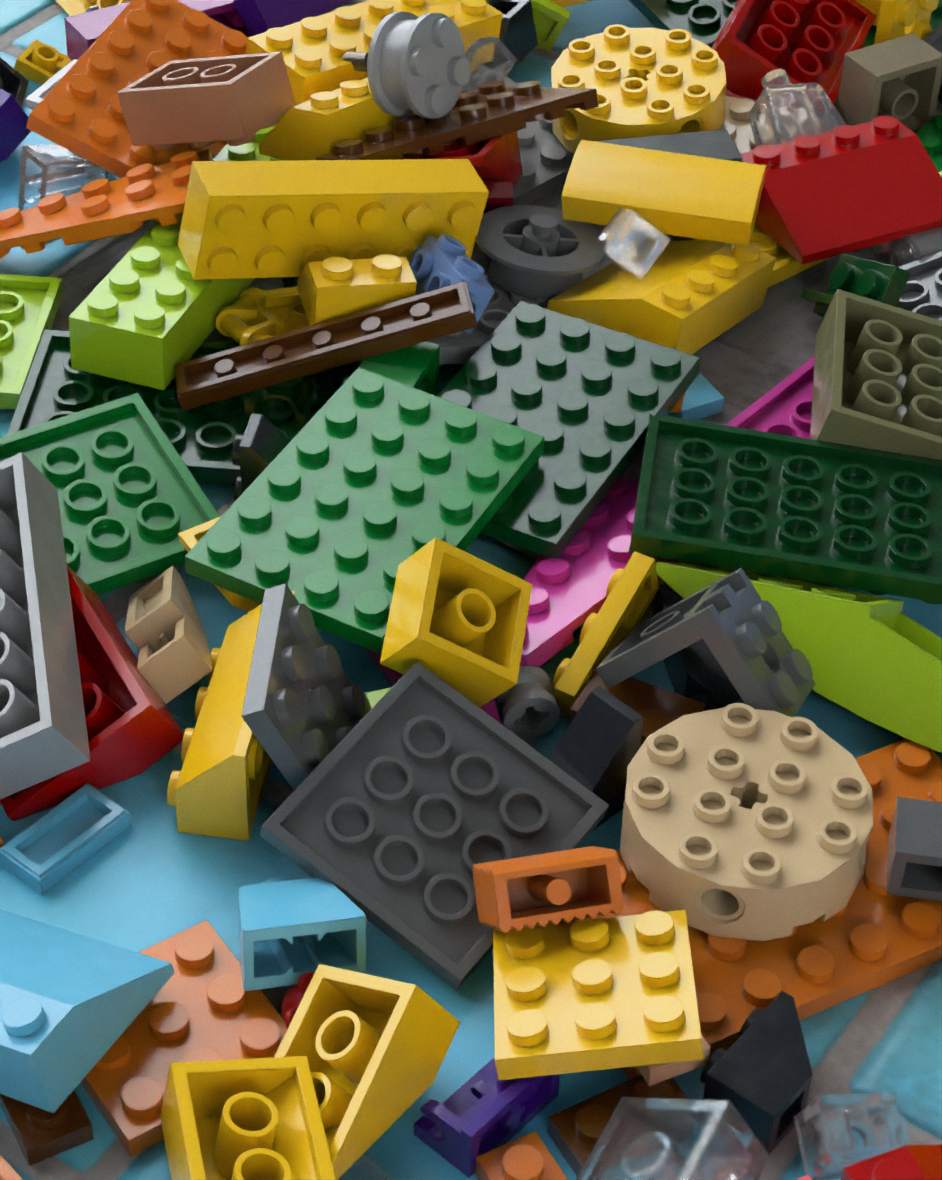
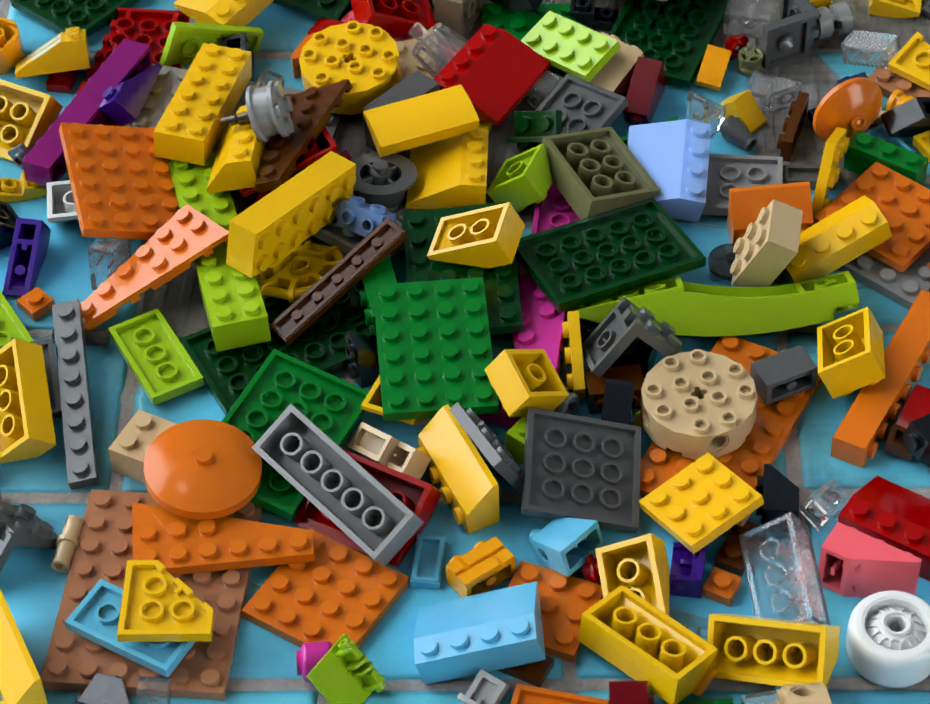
camera: 30 degrees left, 5 degrees up
(122, 893) = (480, 568): none -> light orange brick
(207, 100) = (174, 178): nougat brick -> none
(349, 286) = (328, 246): yellow slope -> none
(548, 888) = (653, 472): orange brick -> none
(593, 378) = (478, 237): none -> yellow slope
(632, 242) = (429, 155): clear brick -> none
(762, 350) = (522, 179): none -> lime slope

